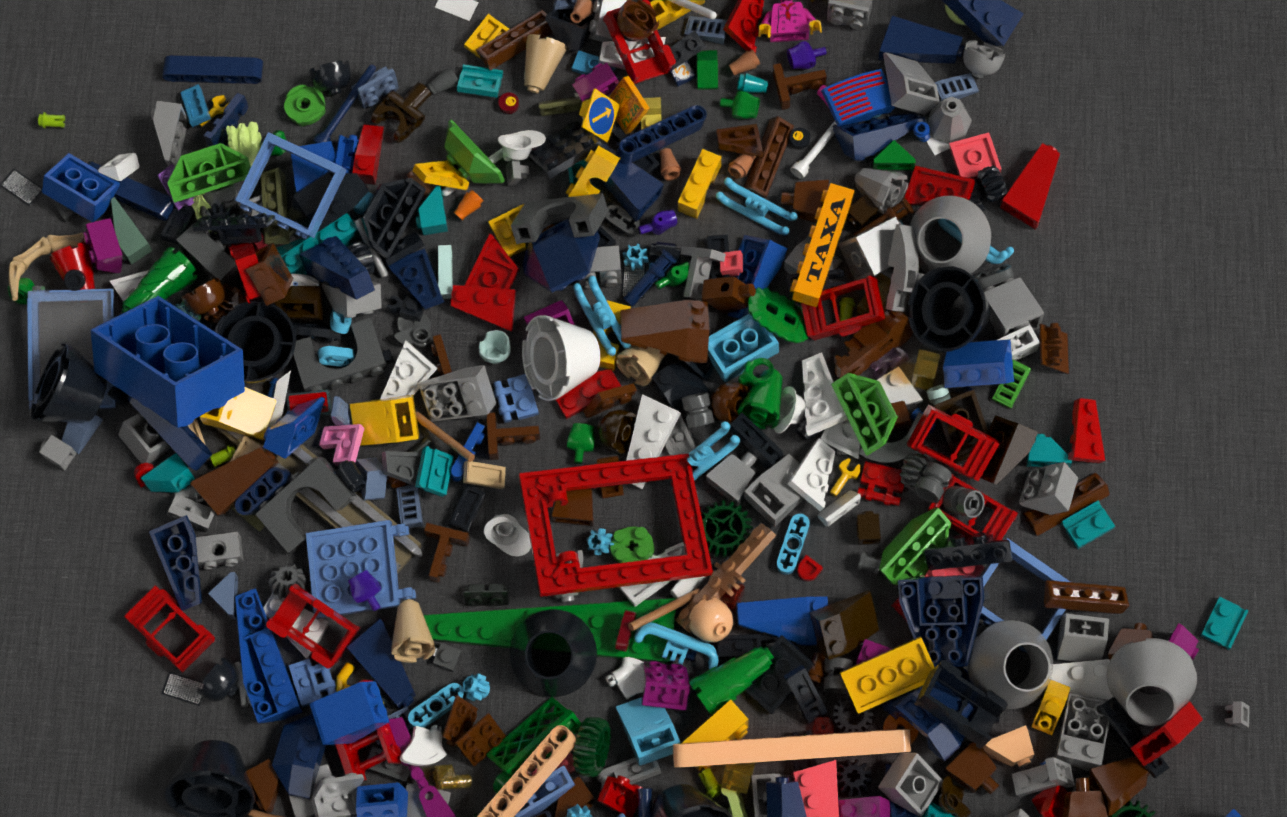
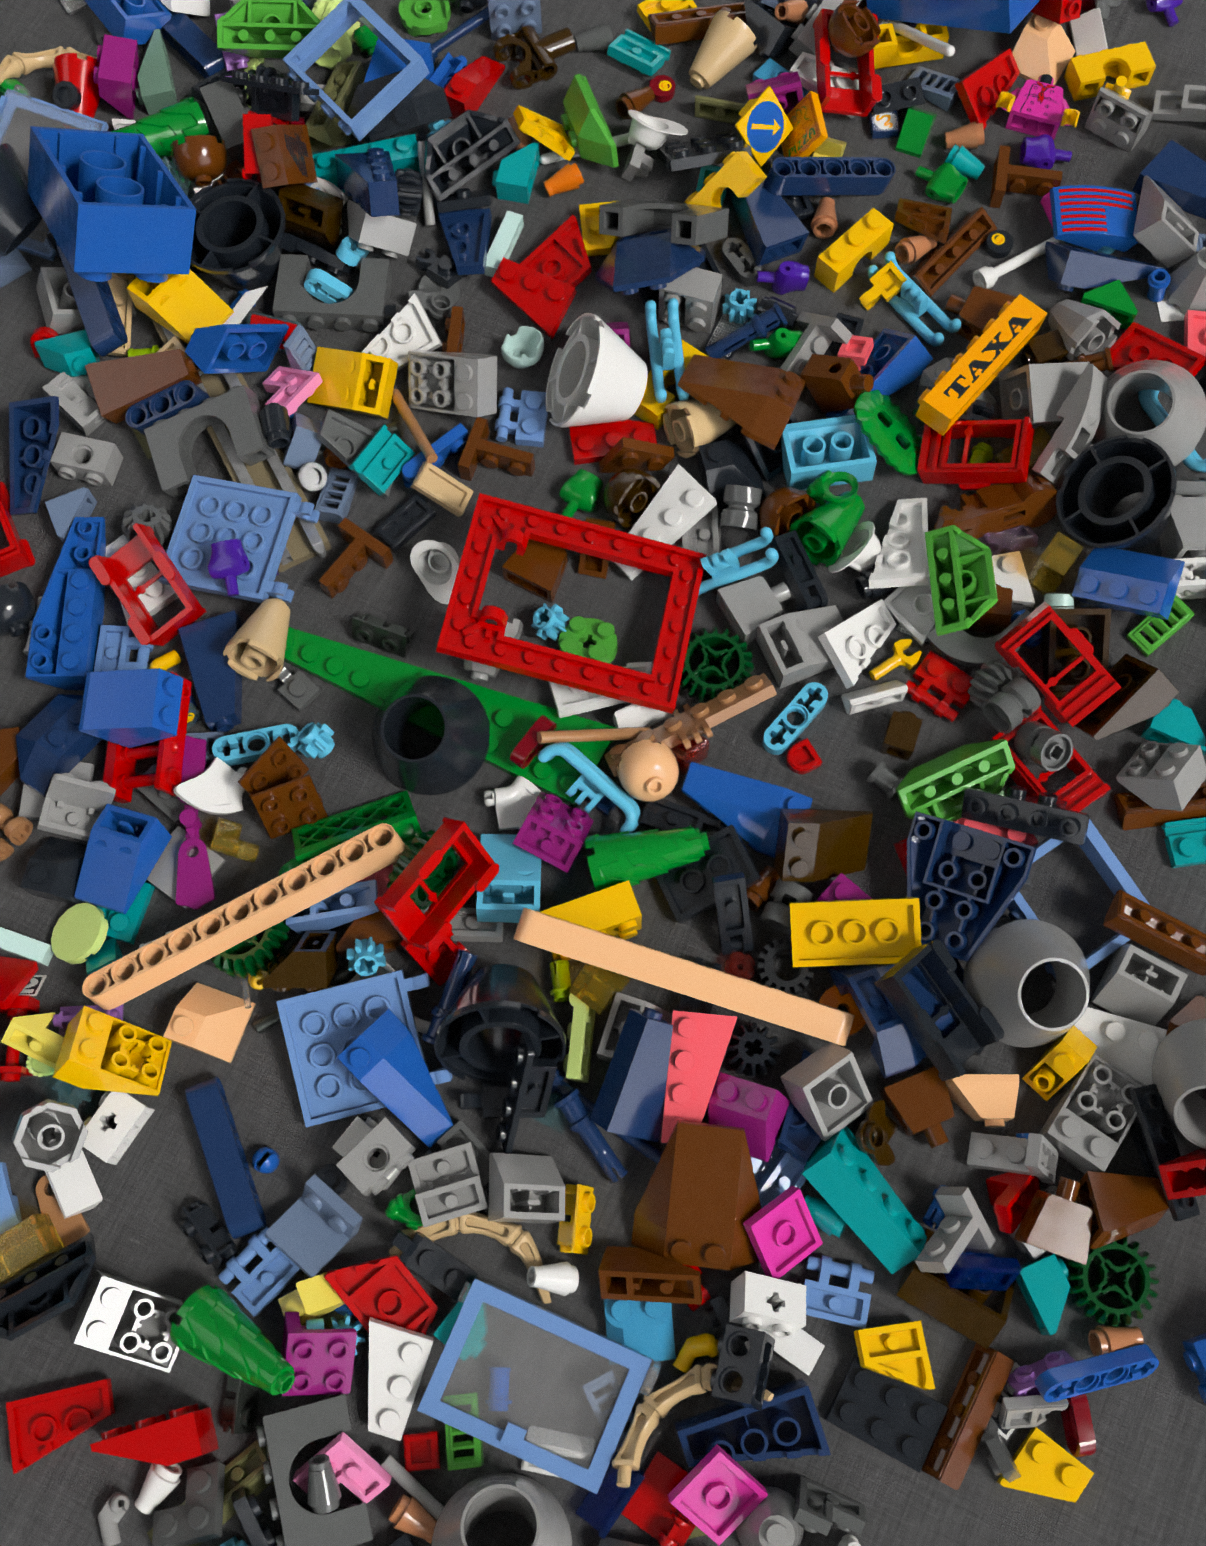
camera: 20 degrees right, 0 degrees up
(388, 501) = (311, 477): none -> tile
(492, 124) = (634, 100): none -> reddish brown cone
(628, 734) = (434, 925): none -> red piece
(733, 203) = (885, 283): none -> yellow plate

